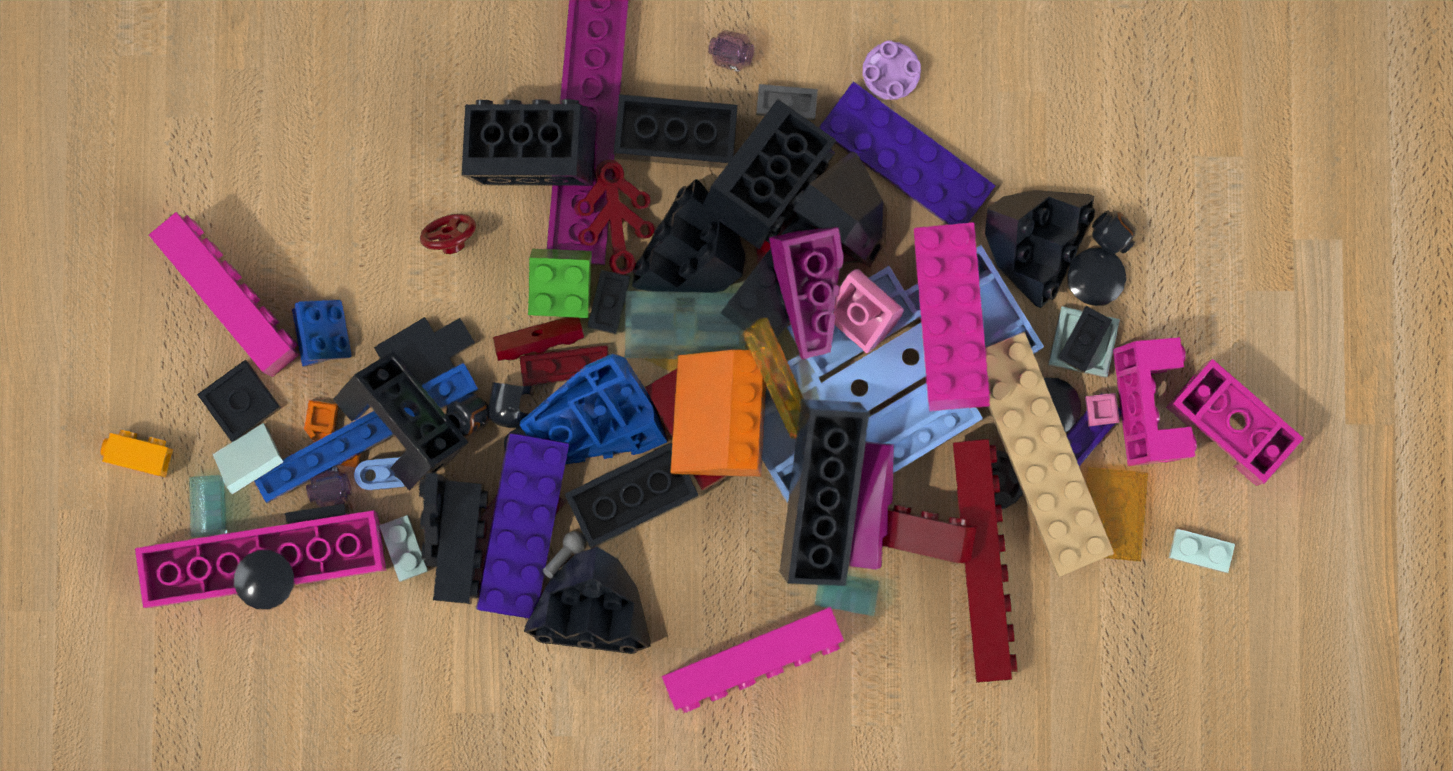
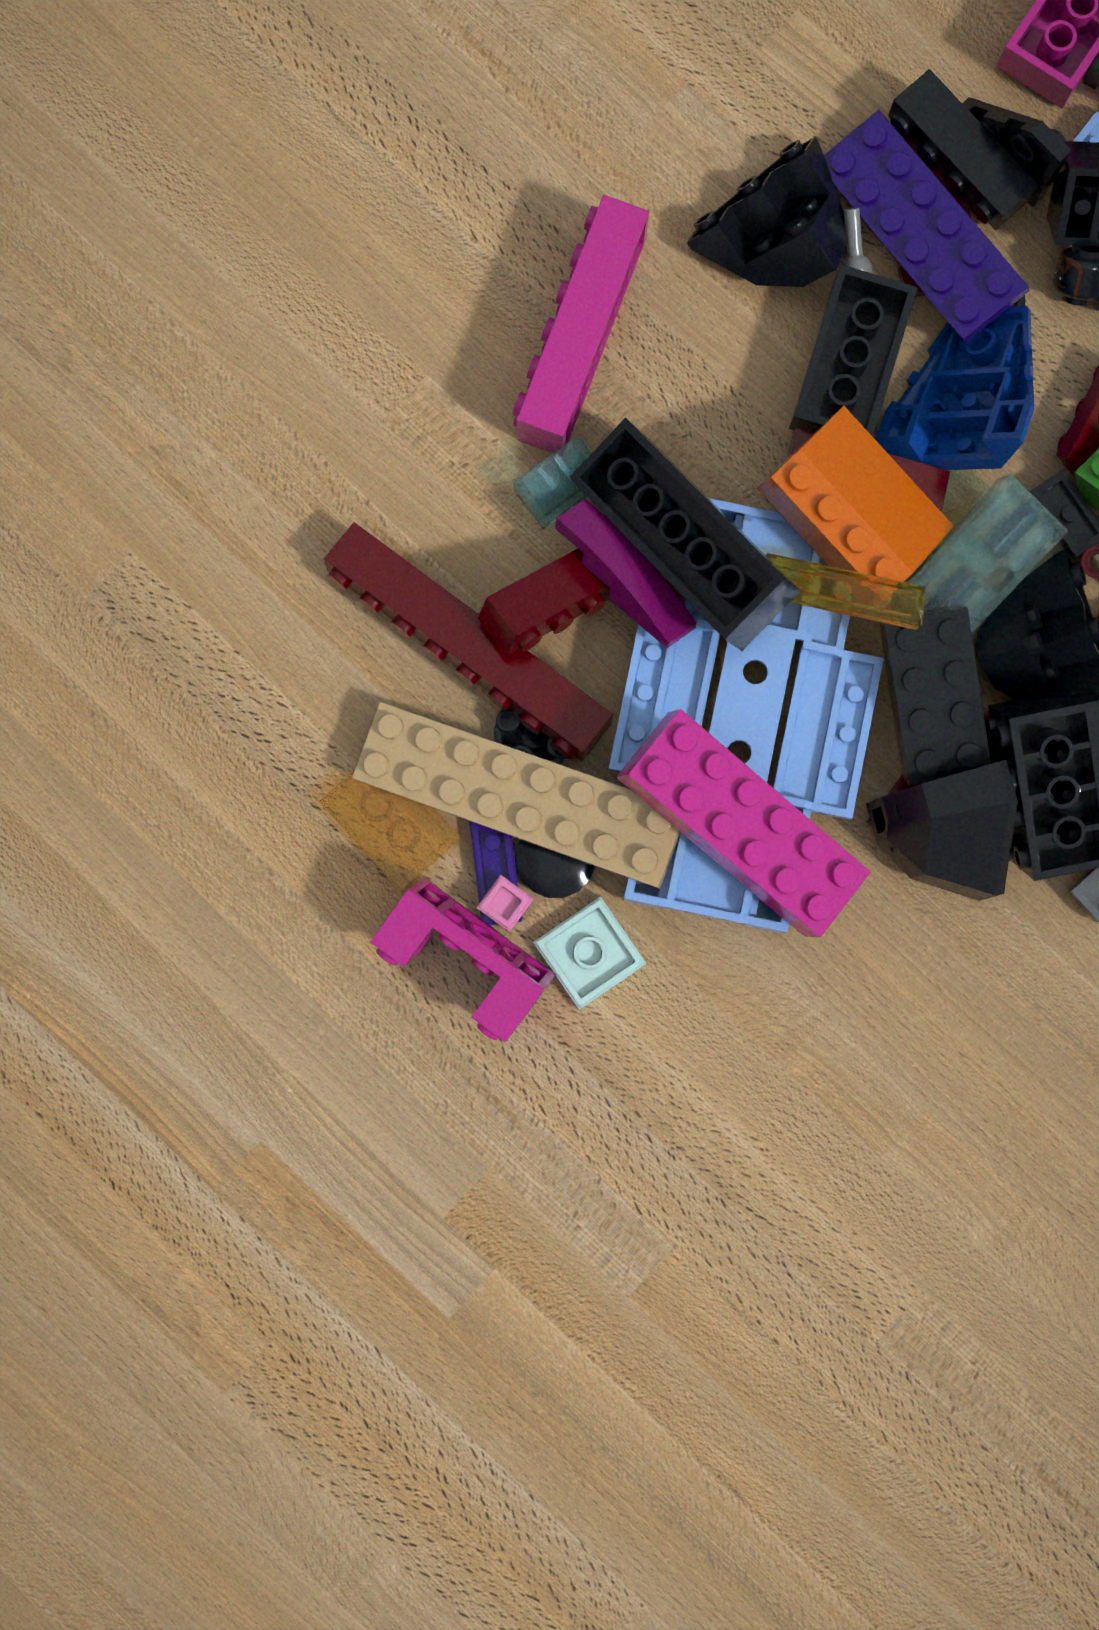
camera: 135 degrees right, 0 degrees up
(403, 548) = (1004, 94): light aqua plate -> none
(505, 403) = (1059, 321): black helmet -> none
(558, 365) = (1052, 405): dark red tile -> none
(808, 278) = (918, 714): magenta wedge -> none
(865, 311) = (831, 742): bright pink brick -> none
(891, 70) = (1048, 1017): lavender dish -> none
(906, 157) = (944, 949): dark purple plate -> none
(1037, 238) = (738, 1003): black brick -> none
(1084, 339) = (592, 951): black plate -> none
(1096, 277) = (643, 1028): black dish -> none
(1114, 232) = (673, 1086): black head -> none
(1201, 550) = (272, 873): light aqua plate -> none
(1209, 403) = (410, 1015): dark pink plate -> none

